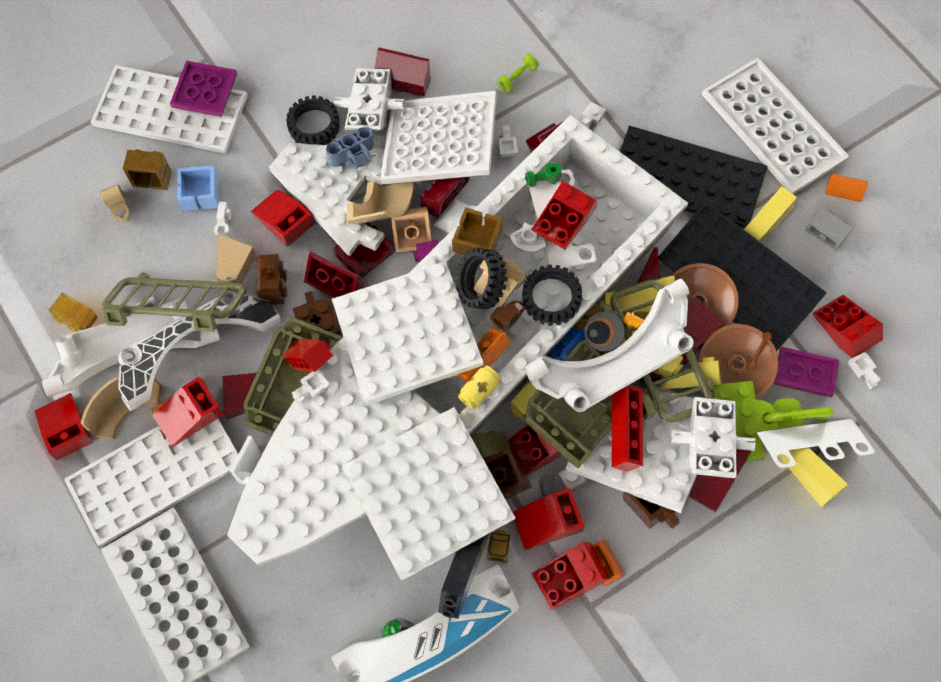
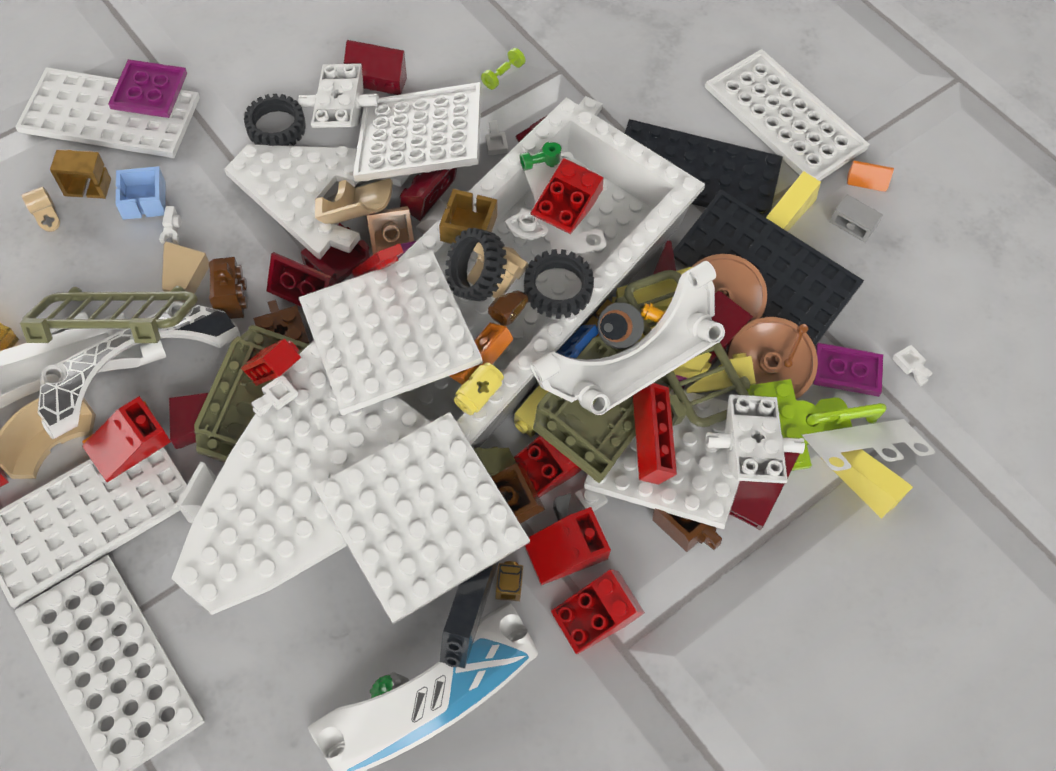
camera: 10 degrees left, 5 degrees down
(283, 217) = (242, 222): red slope -> none
(351, 148) = (319, 145): sand blue beam -> none
(399, 268) = (379, 260): none -> red plate
(609, 561) = (641, 593): orange slope -> none
(849, 326) = (891, 318): red slope -> none

